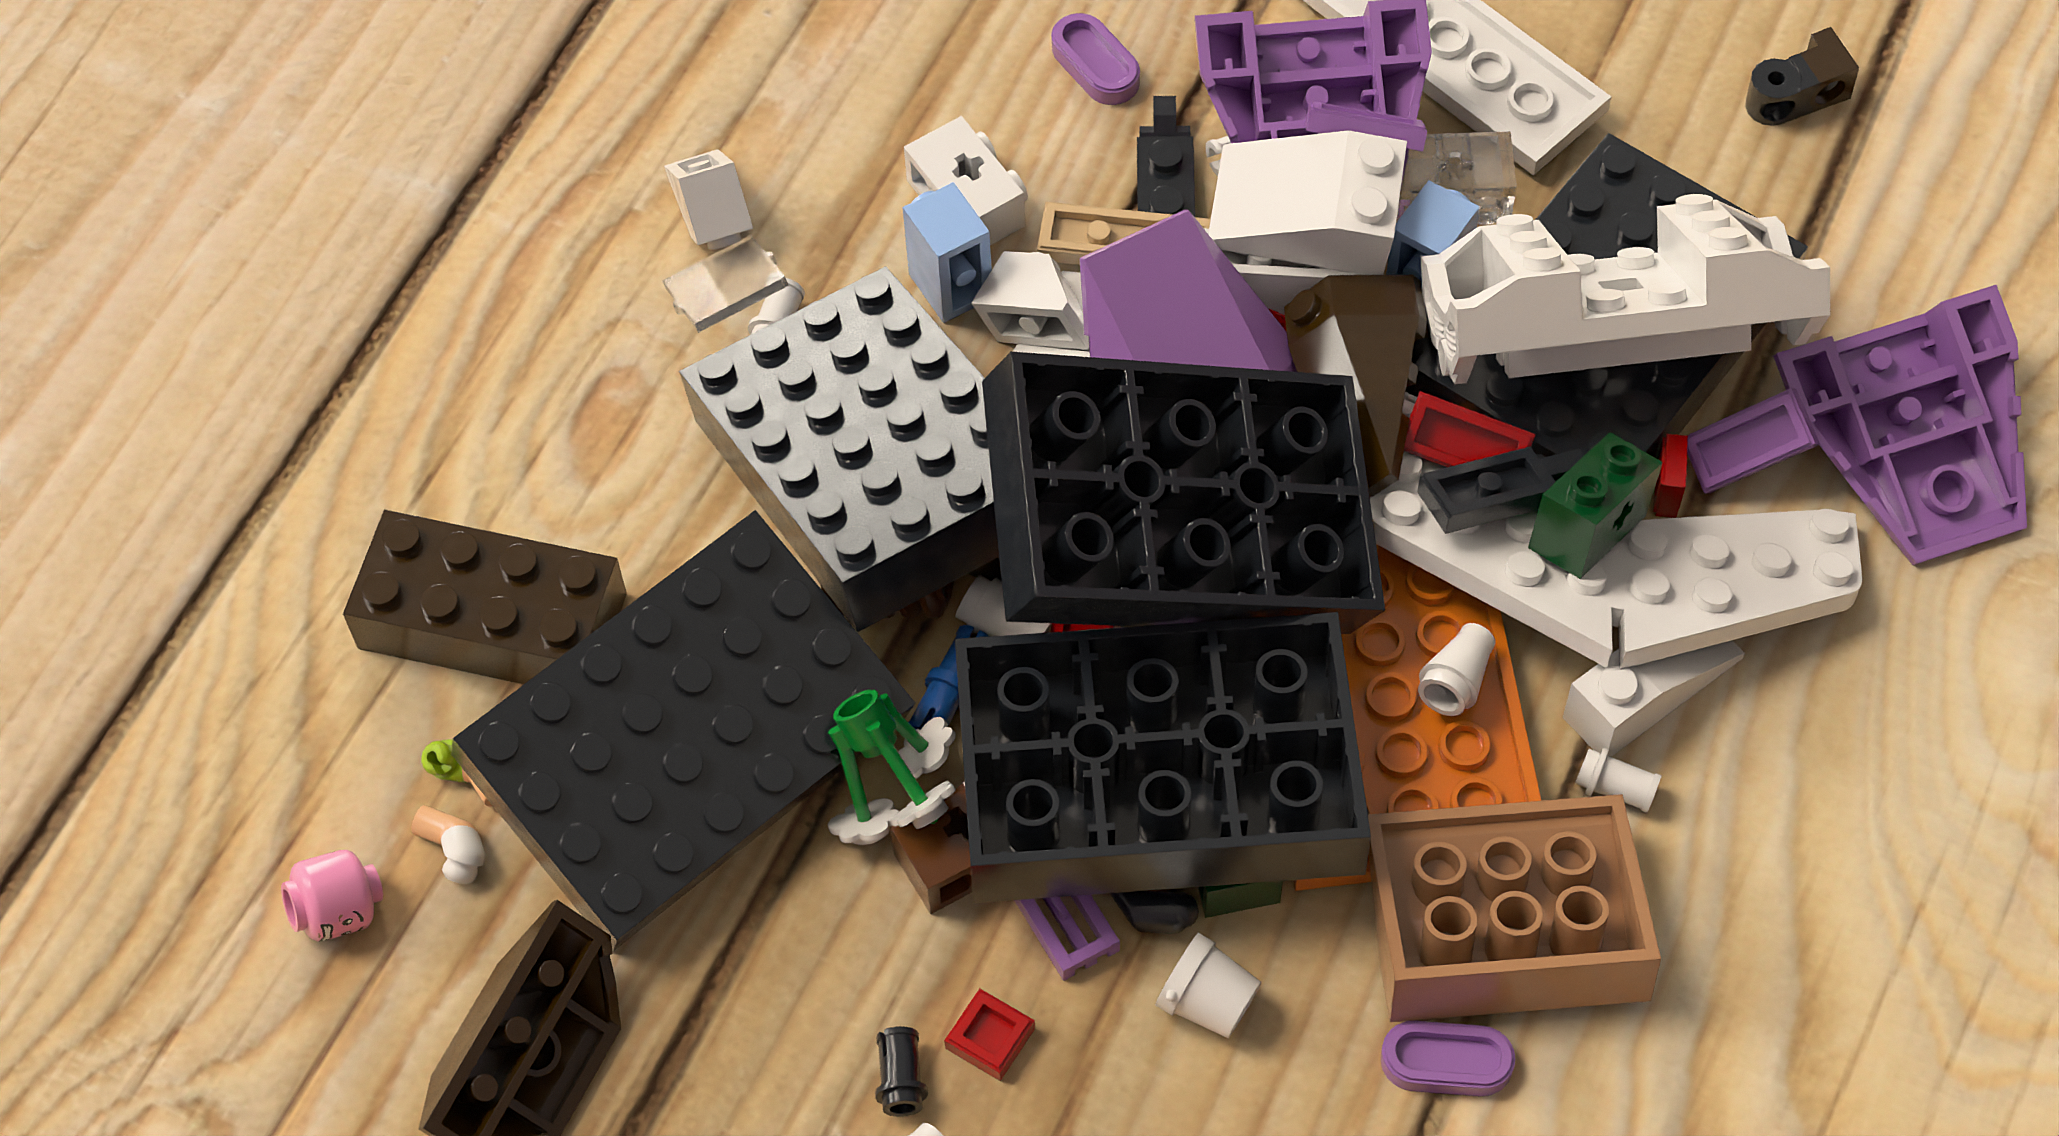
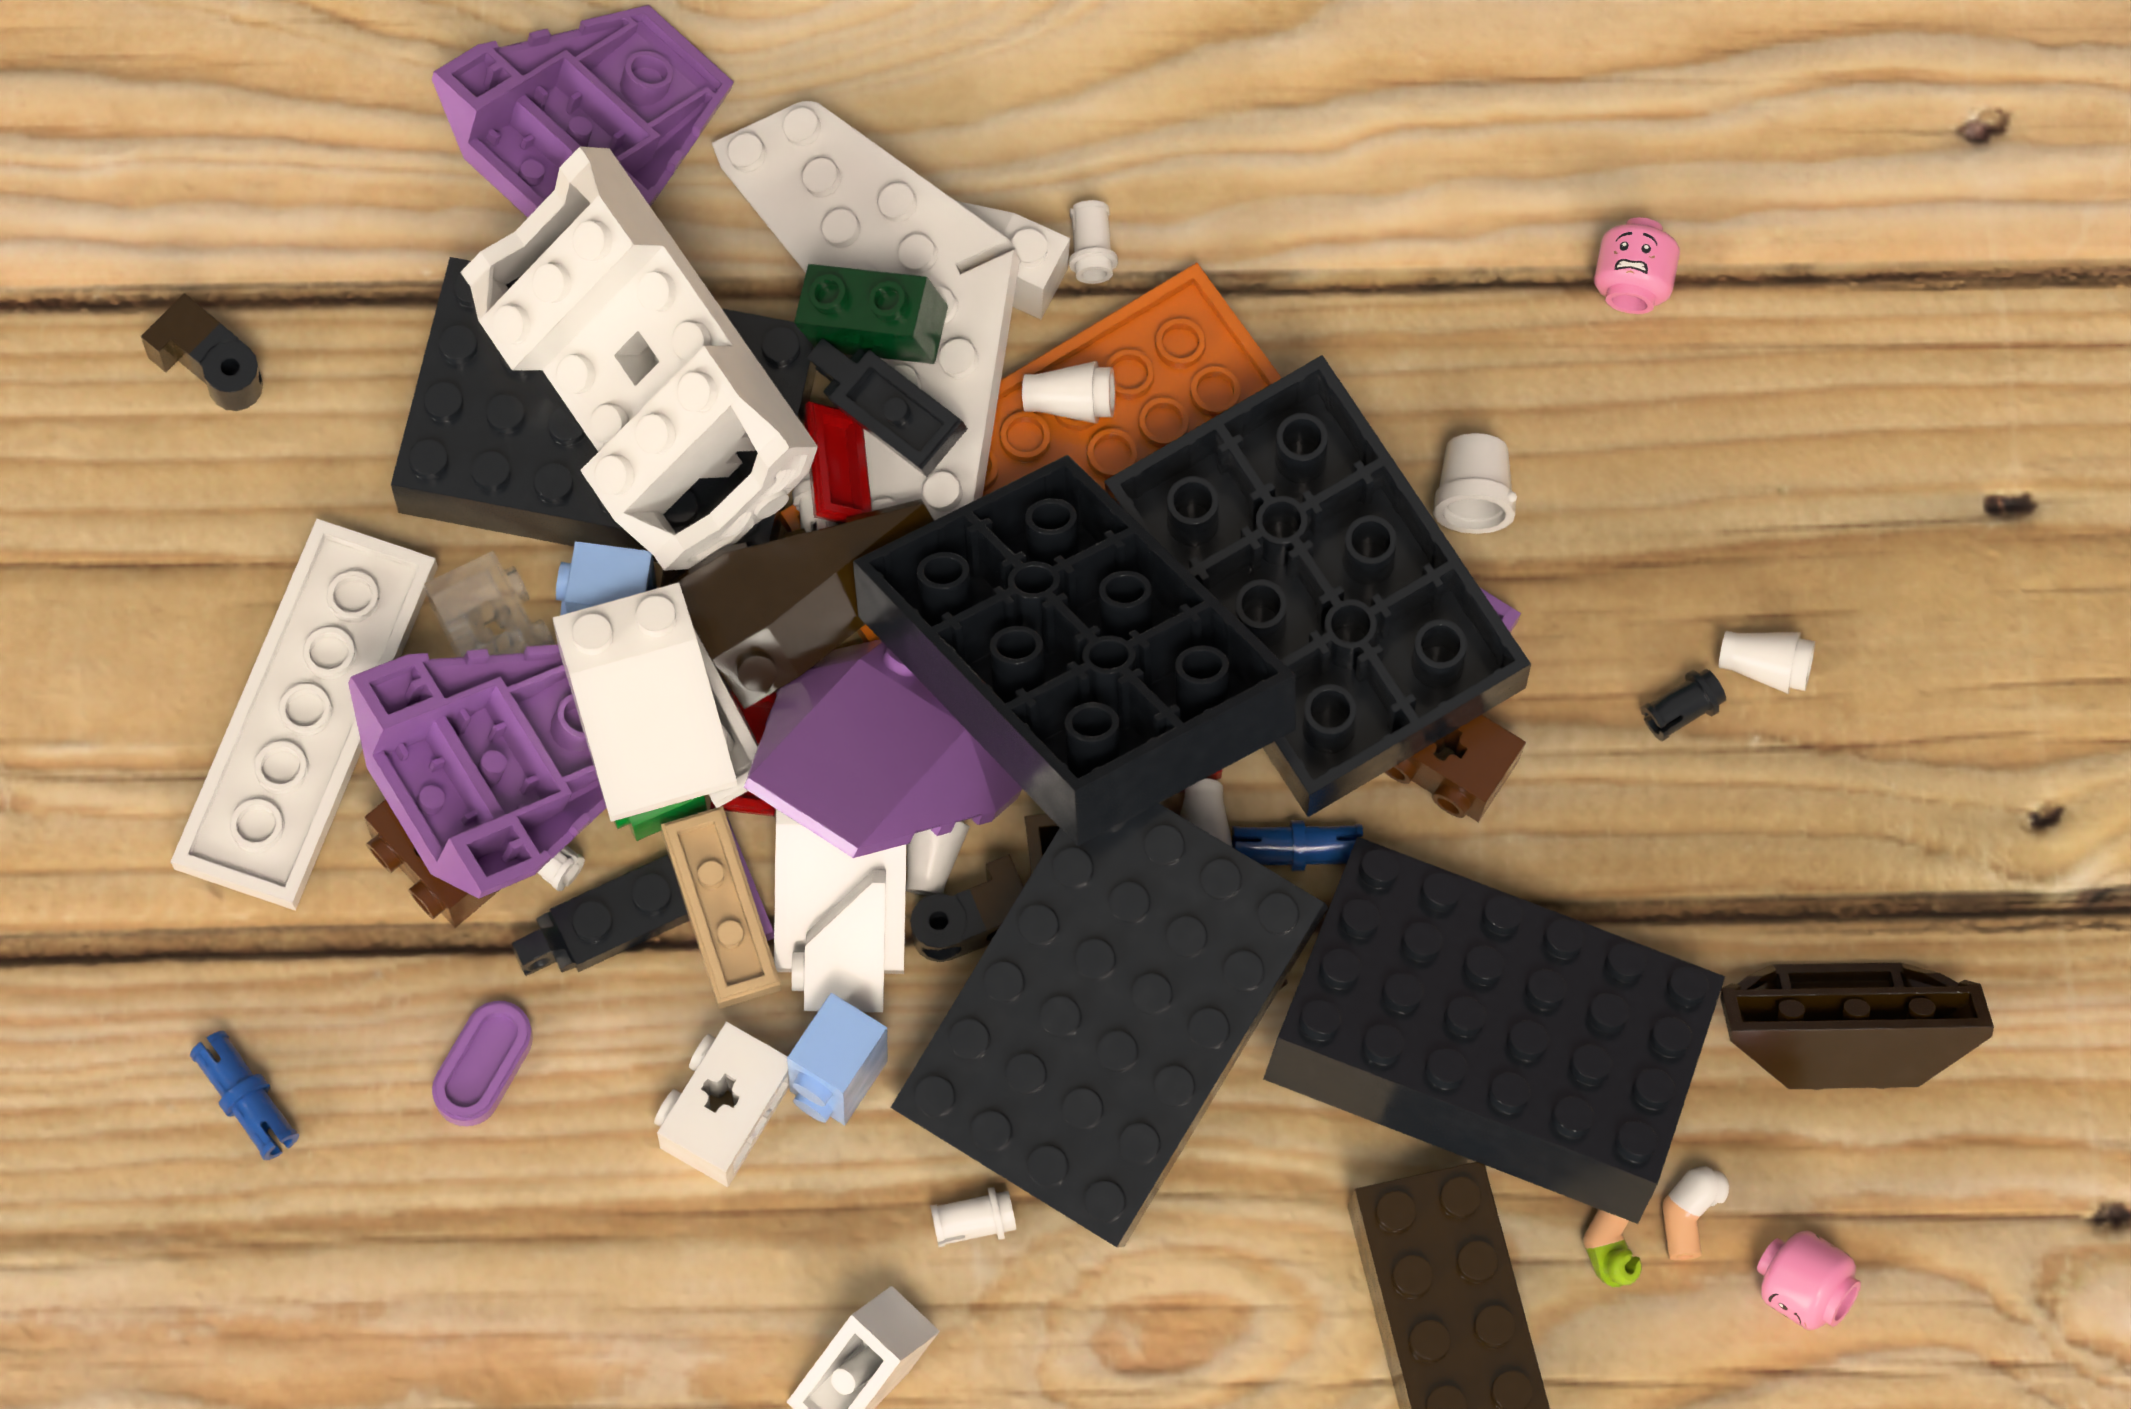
camera: 125 degrees left, 10 degrees up
(725, 283) = (967, 1286): clear piece -> none
(868, 725) = (1425, 839): plant -> none
(989, 1034) = (1604, 653): red tile -> none
(1335, 118) = (536, 678): medium lavender tile -> none
(1447, 1058) = (1421, 283): medium lavender tile -> none
(1510, 908) = (1275, 263): medium nougat slope -> none
(1672, 476) = (758, 298): red tile -> none
(1751, 440) = (697, 235): medium lavender tile -> none

